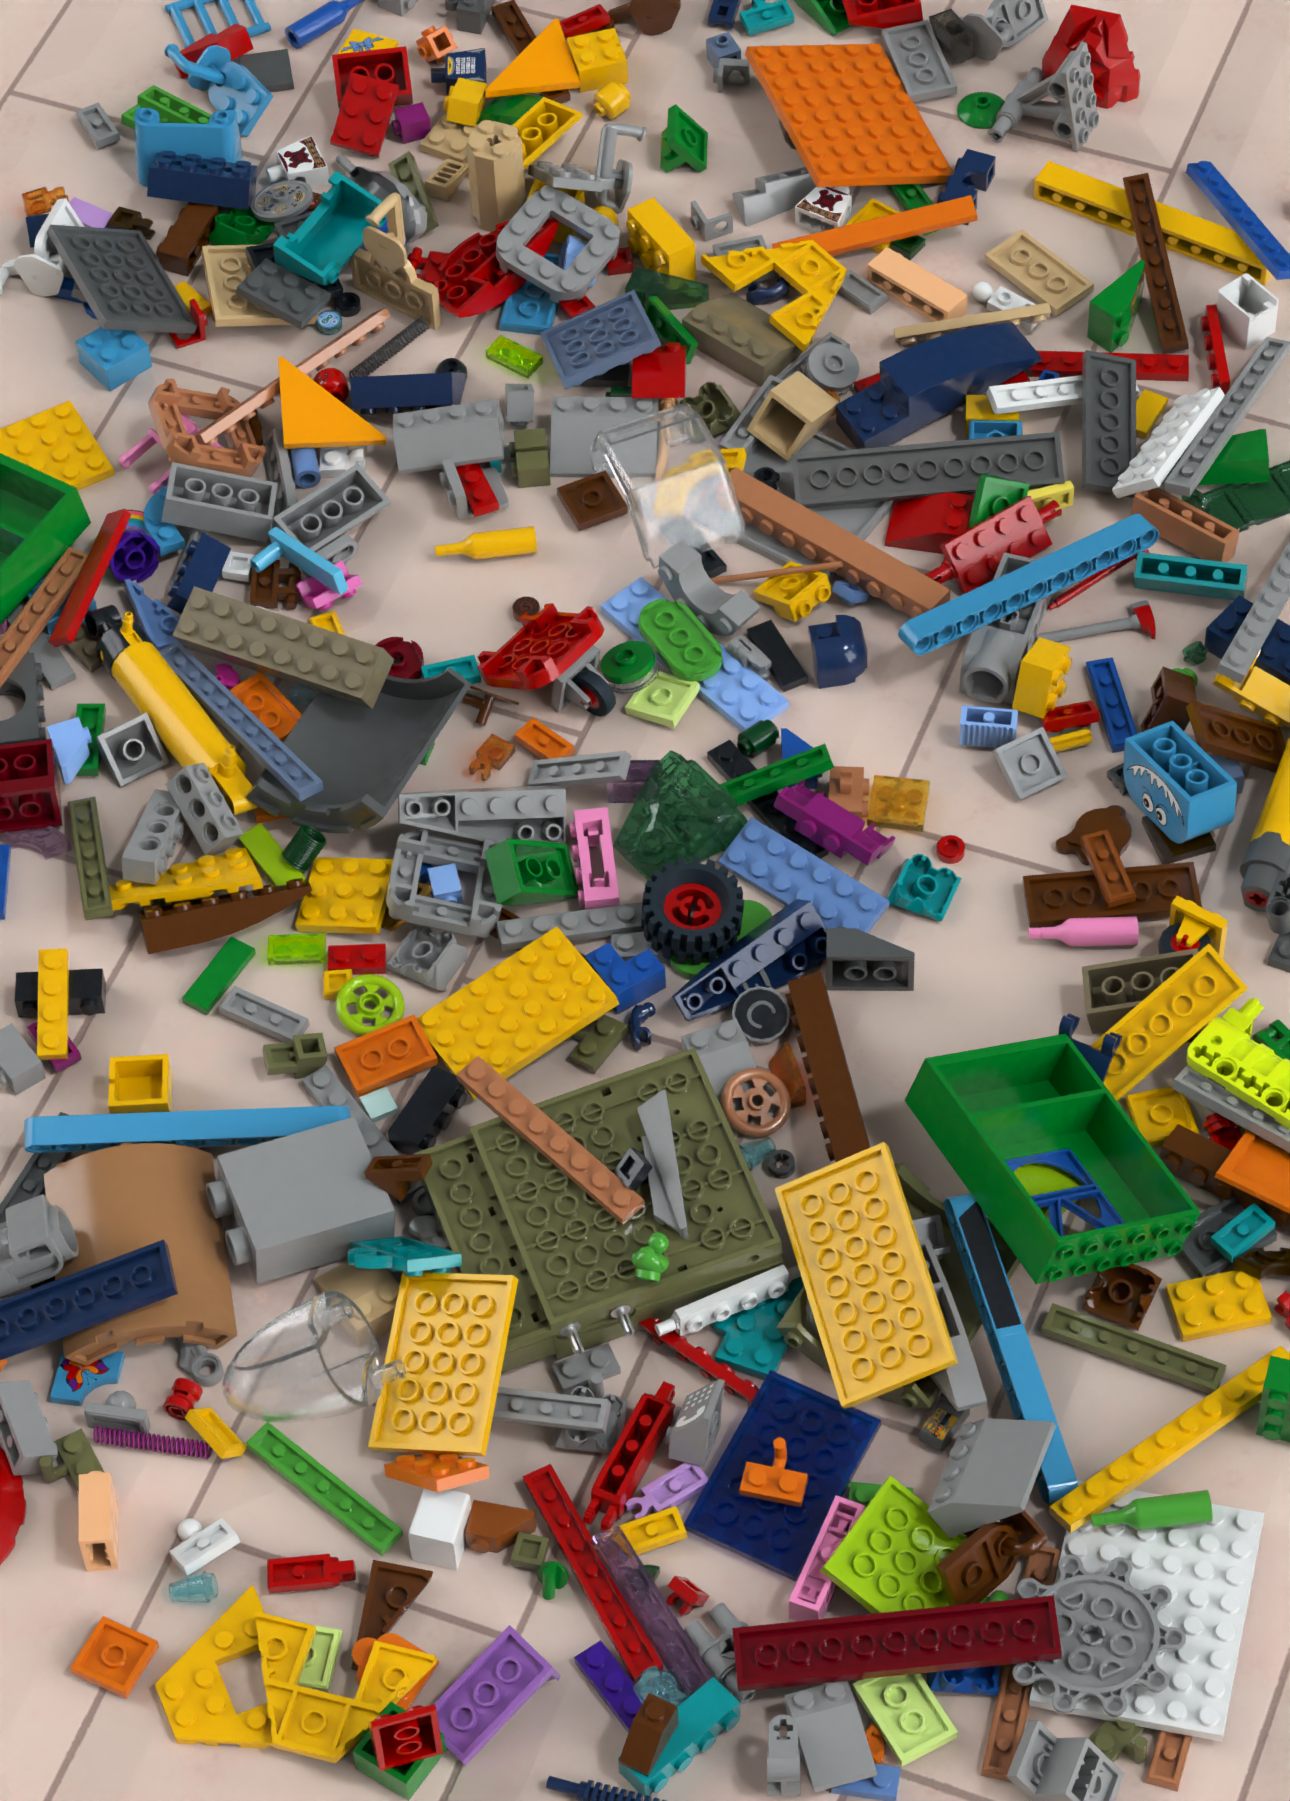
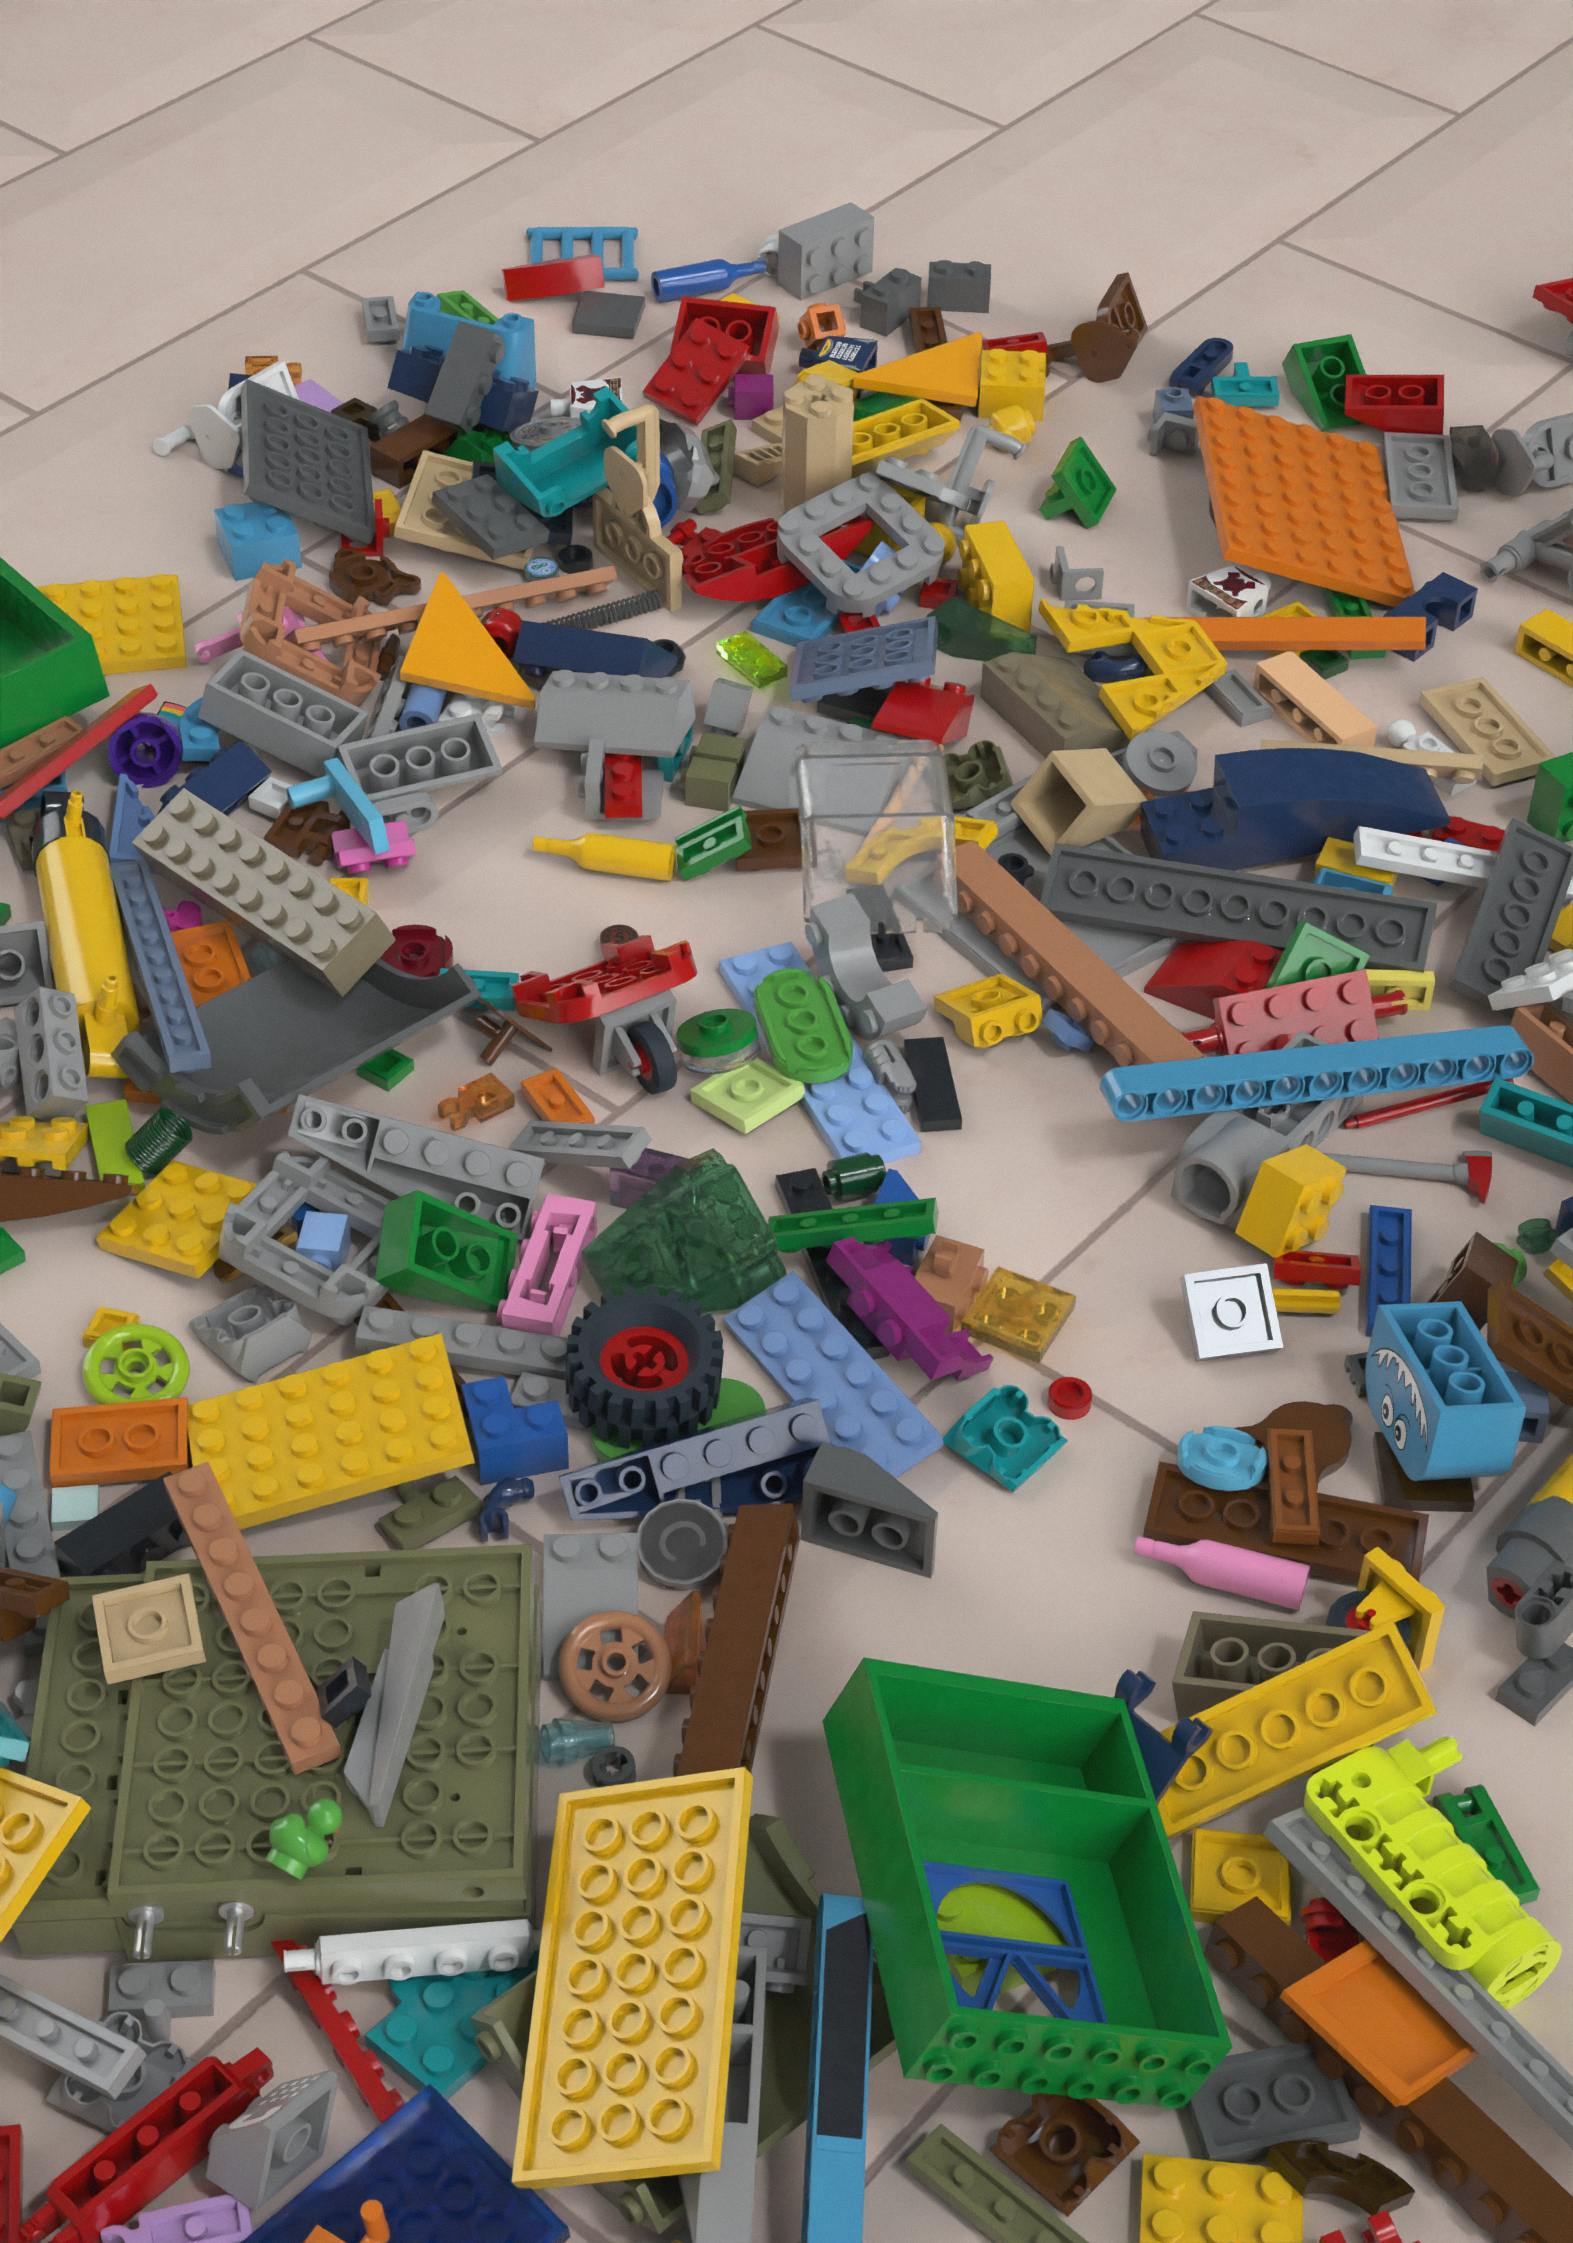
camera: 15 degrees right, 10 degrees down
(159, 223) = (386, 417): none -> dark grey wheel
(207, 364) = (369, 578): none -> reddish brown tile
(213, 179) = (465, 377): none -> dark grey brick
(228, 84) = (547, 298): dark azure plate -> none
(296, 949) = (79, 1268): clear neon green plate -> none
(359, 958) = (157, 1304): red plate -> none
(496, 1166) = (148, 1628): none -> tan plate
(558, 516) = (712, 843): none -> green plate
(668, 326) = (963, 668): green tile -> none
(773, 195) = (1172, 568): light grey wedge -> none
(777, 572) = (975, 980): nougat axle -> none
(838, 651) = (1018, 1097): dark blue brick -> none
(979, 109) = (1478, 543): green dish -> none
(987, 726) = (1187, 1244): light blue brick -> none
(1059, 863) = (1222, 1458): none -> medium azure tile
(1242, 1232) = (1300, 2106): teal plate -> none

